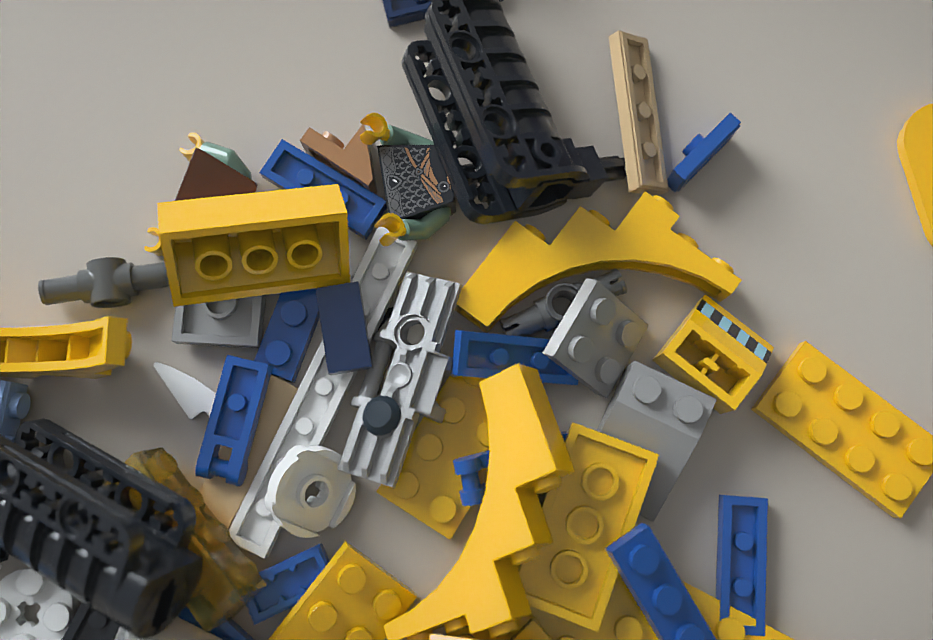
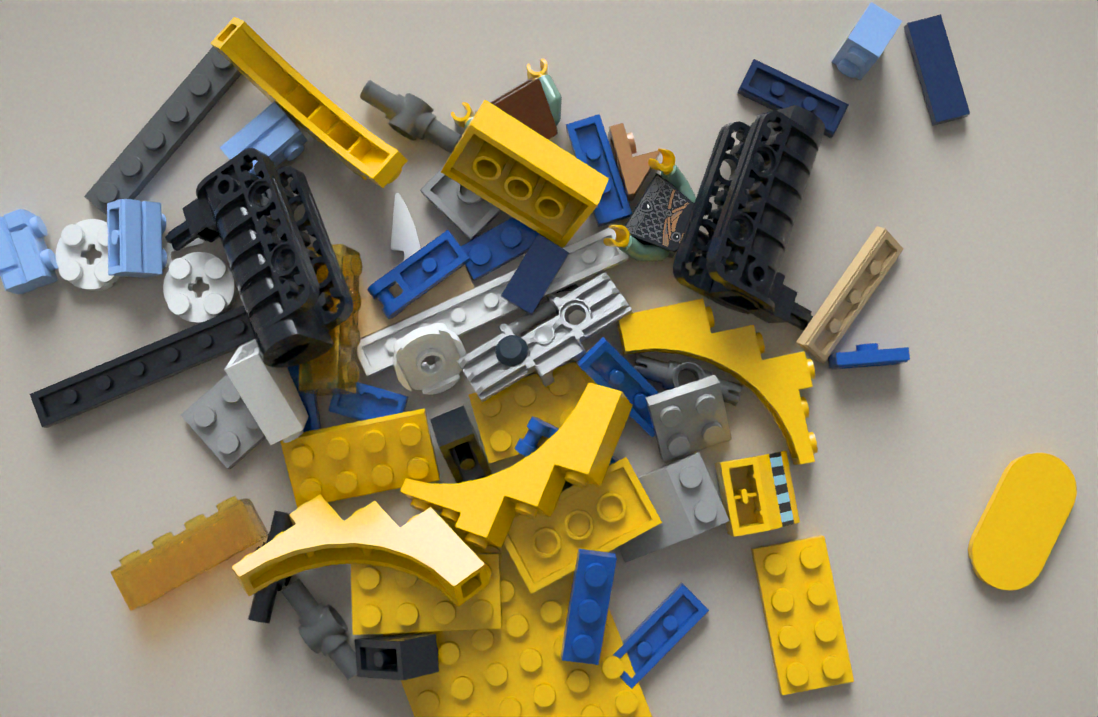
camera: 40 degrees right, 5 degrees up
(410, 547) = (460, 445): none -> black slope

